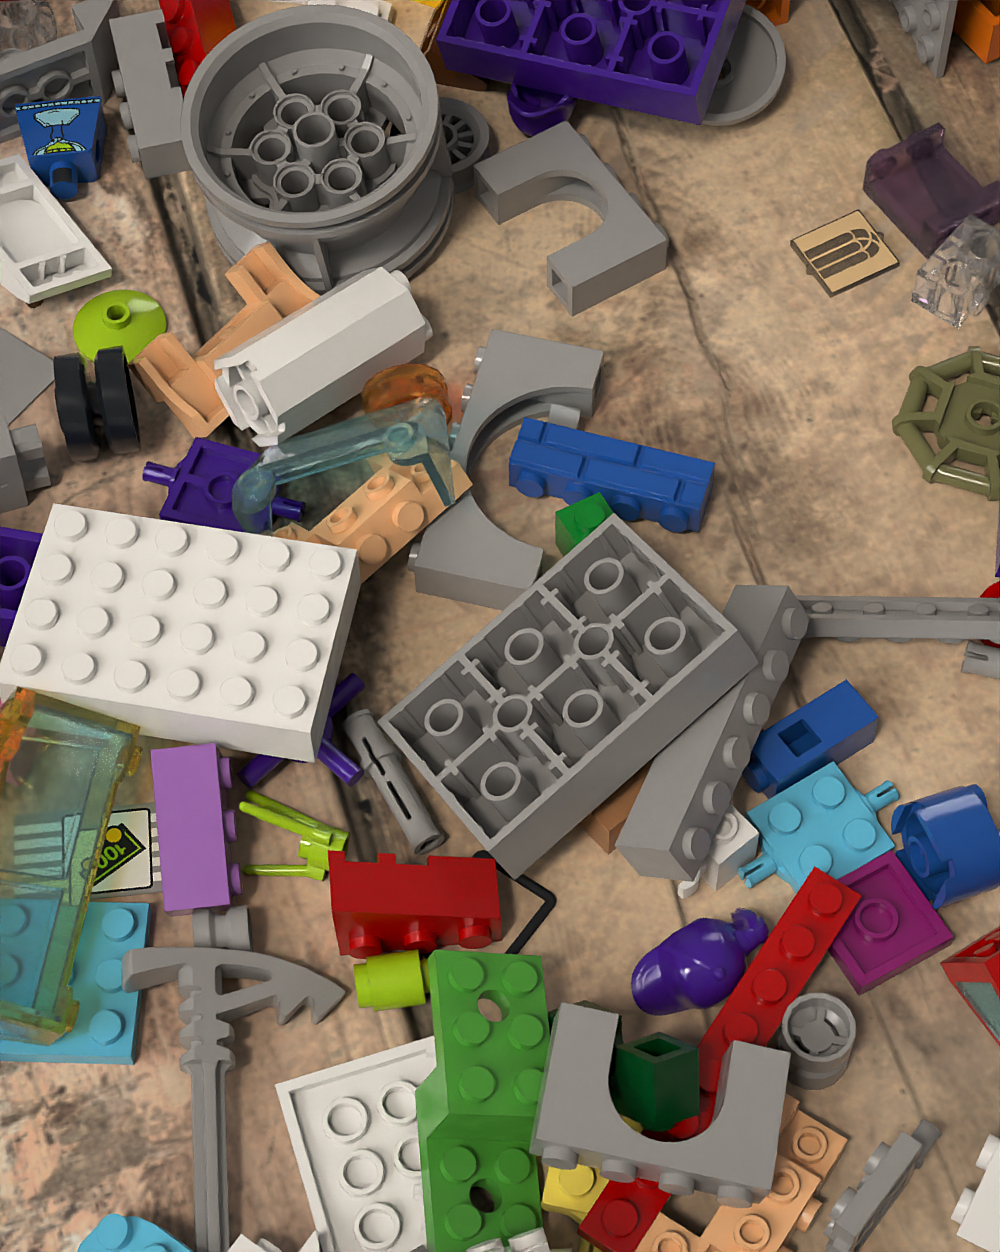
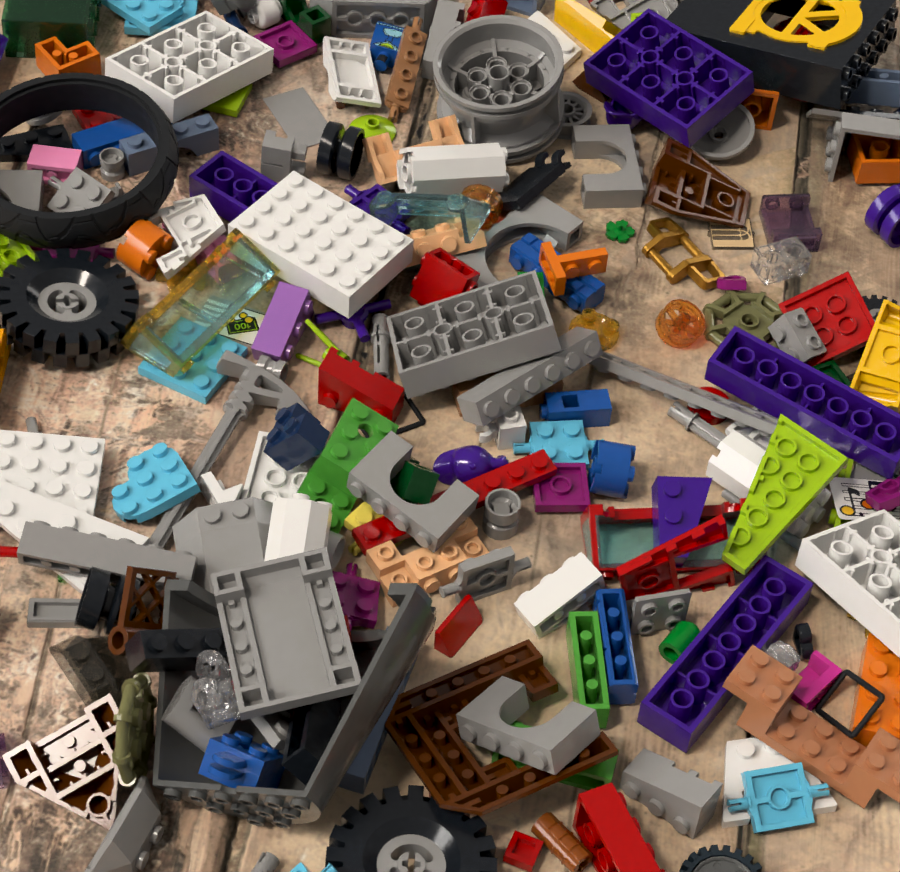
camera: 20 degrees right, 10 degrees down
(118, 181) = (405, 69): none -> medium nougat plate
(366, 1083) = (295, 437): none -> dark blue brick
(392, 981) = (328, 414): lime brick -> none
(439, 596) = (442, 277): none -> red brick
(469, 309) = (533, 181): none -> black tile
(629, 475) = (571, 265): none -> orange bracket
(659, 335) = (619, 231): none -> green plant
(739, 555) = (606, 328): none -> clear yellow dish
(742, 197) = (695, 189): none -> reddish brown wedge
(825, 354) = (690, 266): none -> pearl gold bar
(900, 468) = (679, 324): none -> clear orange wheel
(914, 352) = (732, 282): none -> magenta tile

